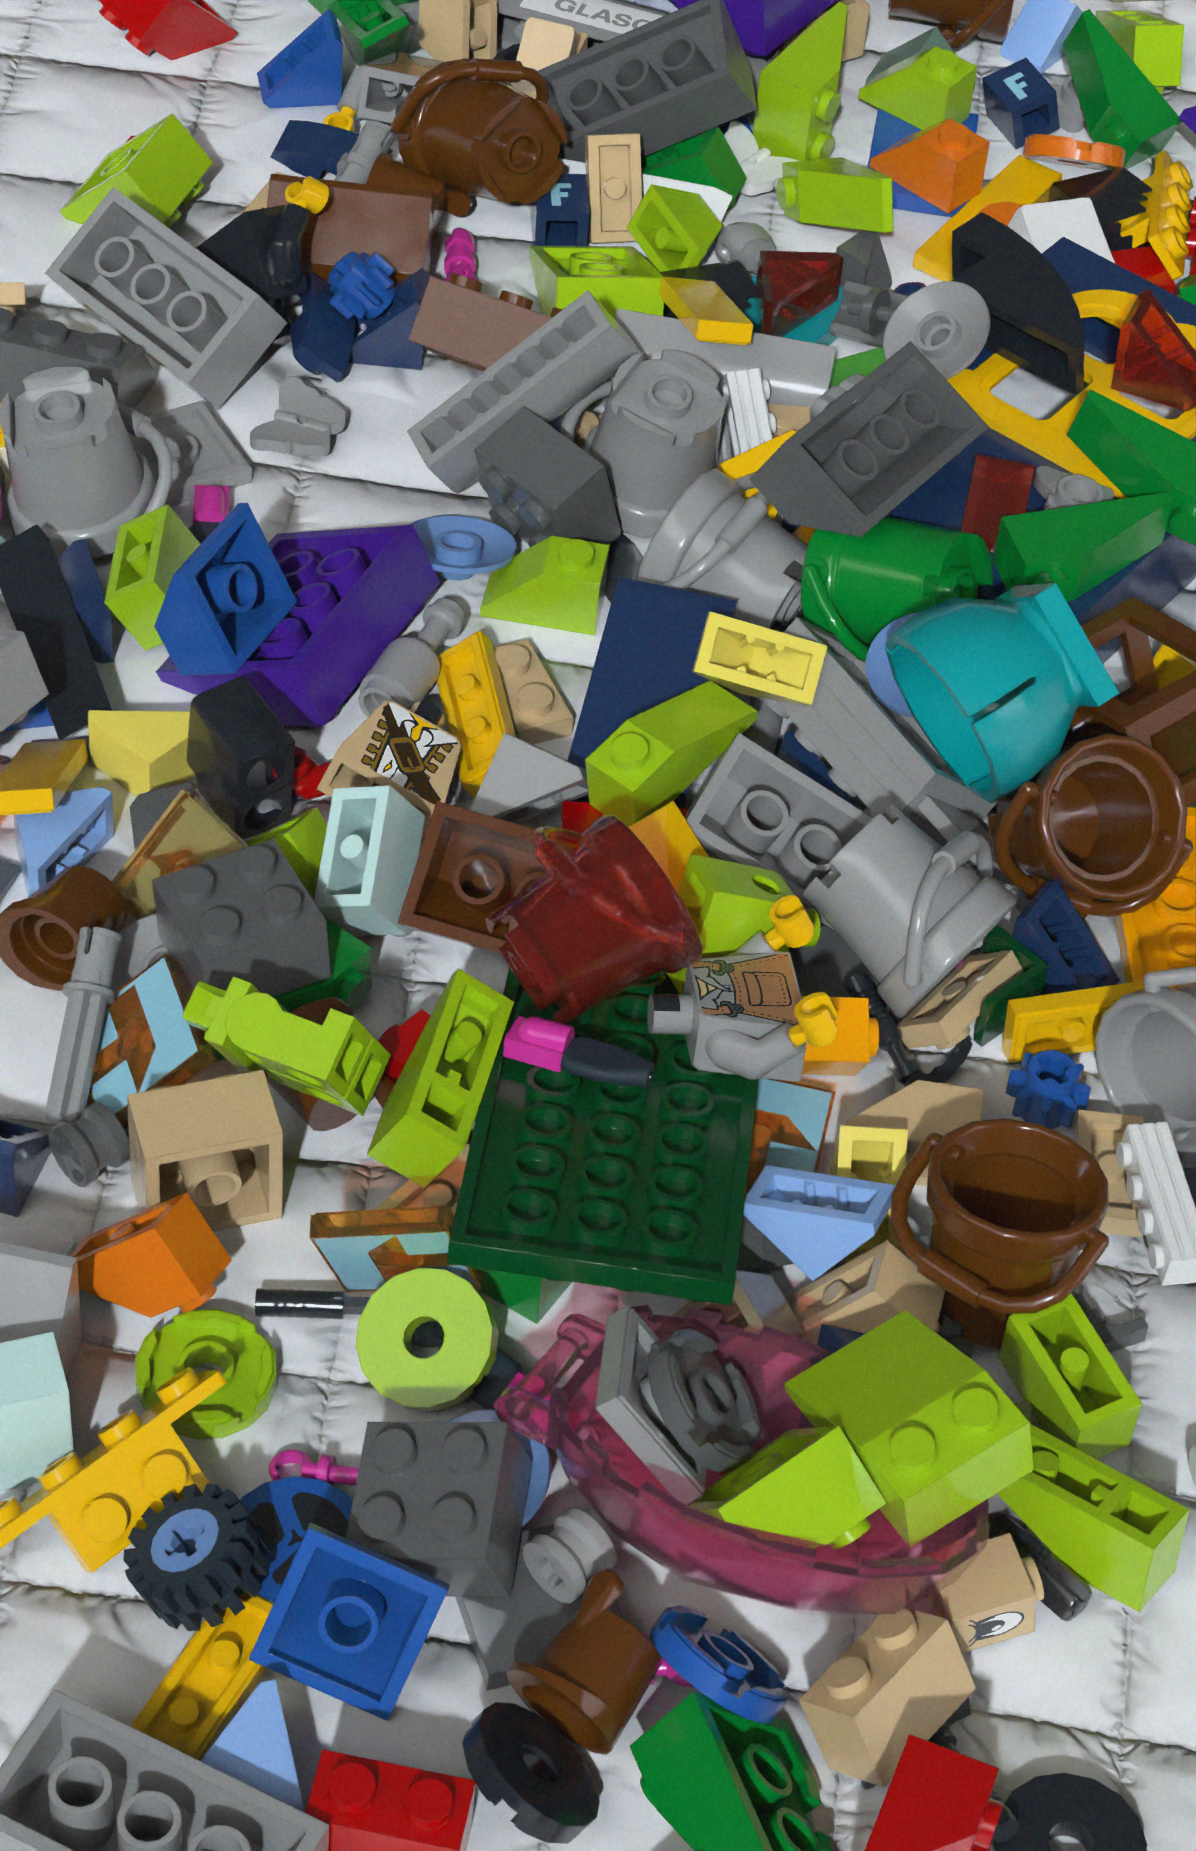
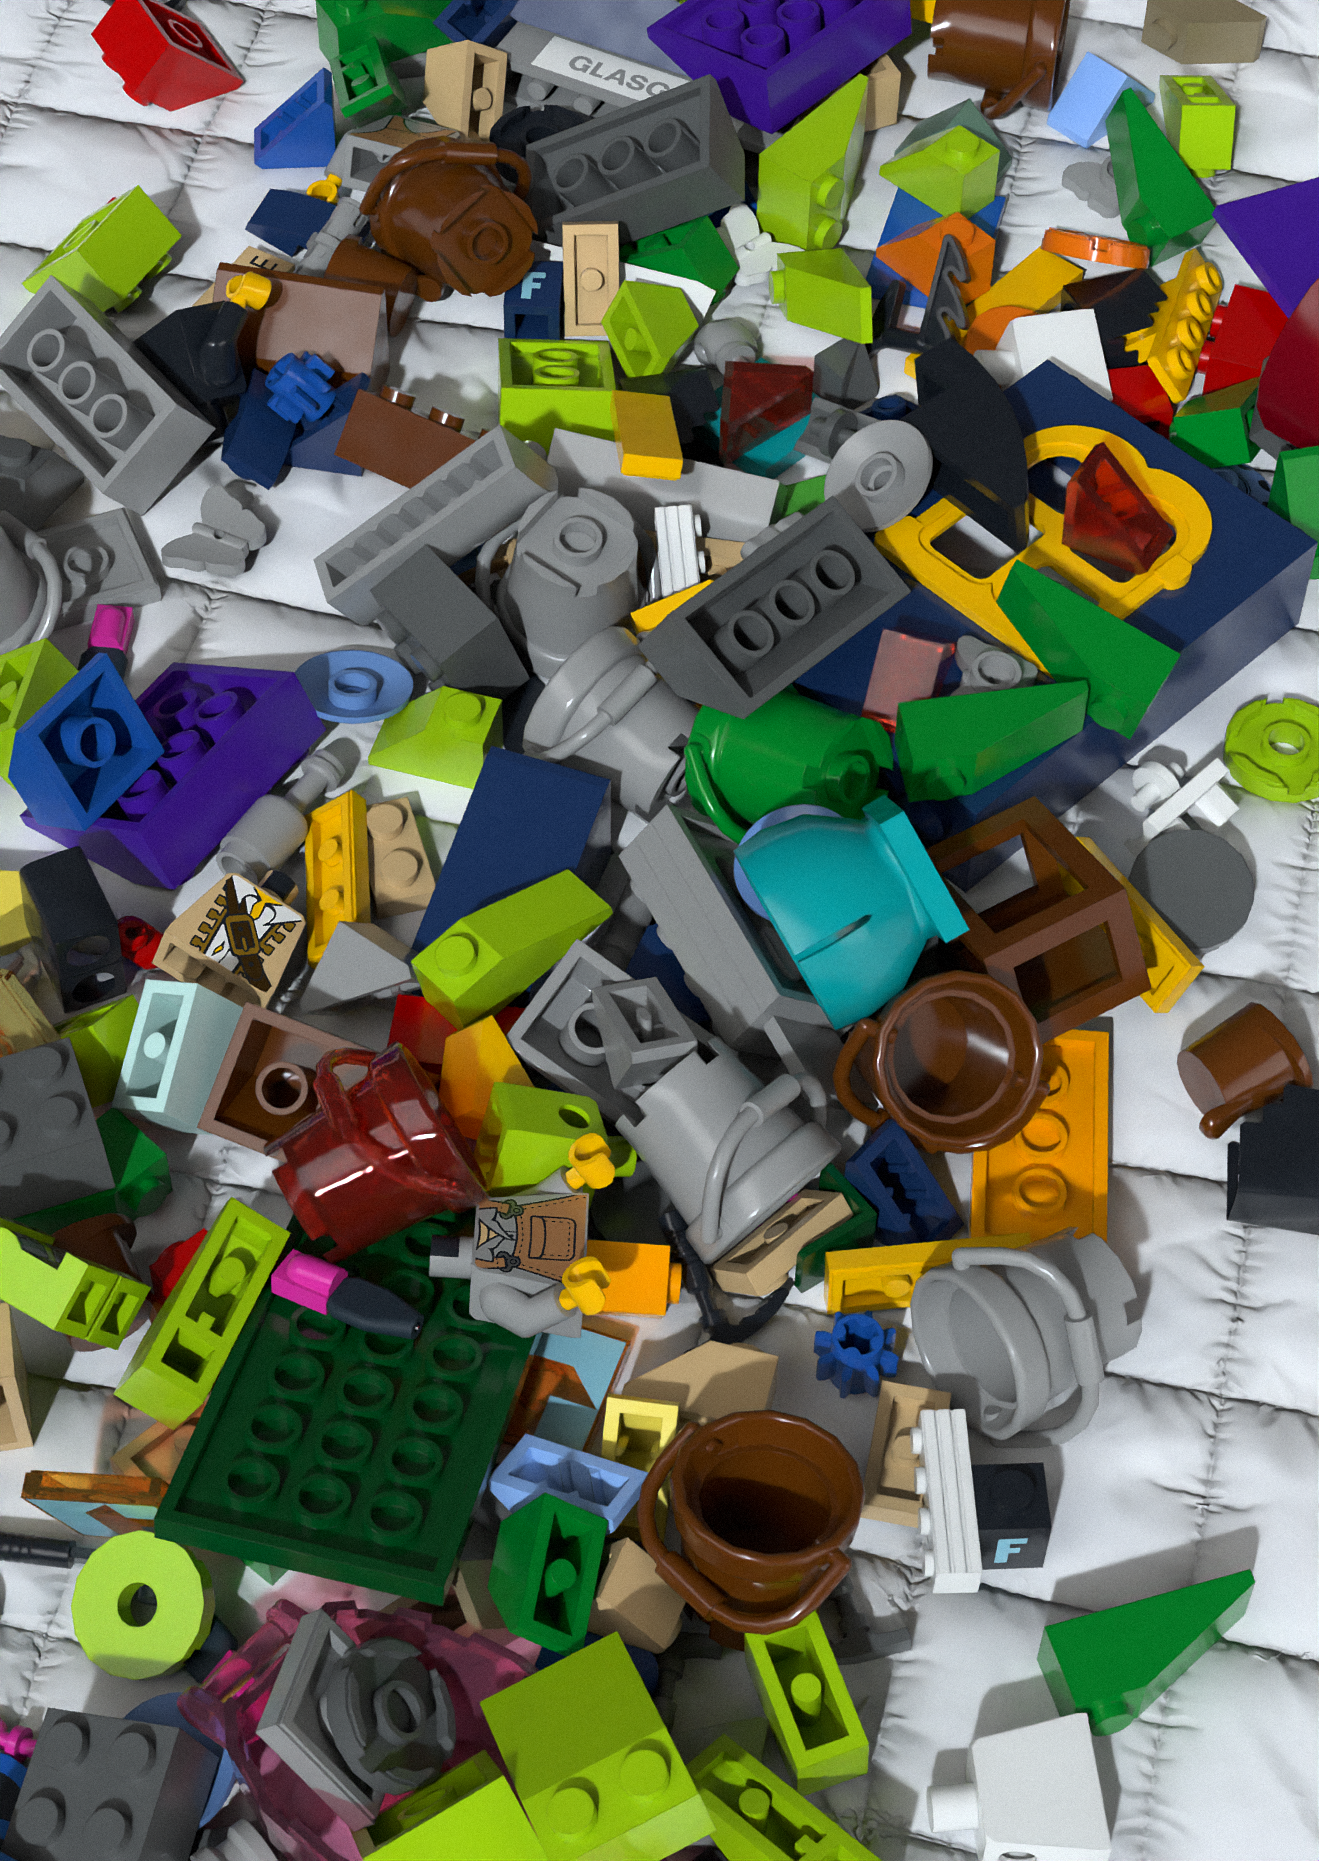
camera: 10 degrees right, 5 degrees up
(460, 254) = (421, 358): dark pink piece -> none
(546, 44) = (545, 114): tan slope -> none
(759, 660) = (618, 851): light yellow slope -> none
(813, 813) = (640, 1031): none -> light grey slope
(820, 1268) = (547, 1572): none -> green slope
(948, 196) = (942, 301): none -> black piece
(1020, 102) = (1051, 186): dark blue brick -> none

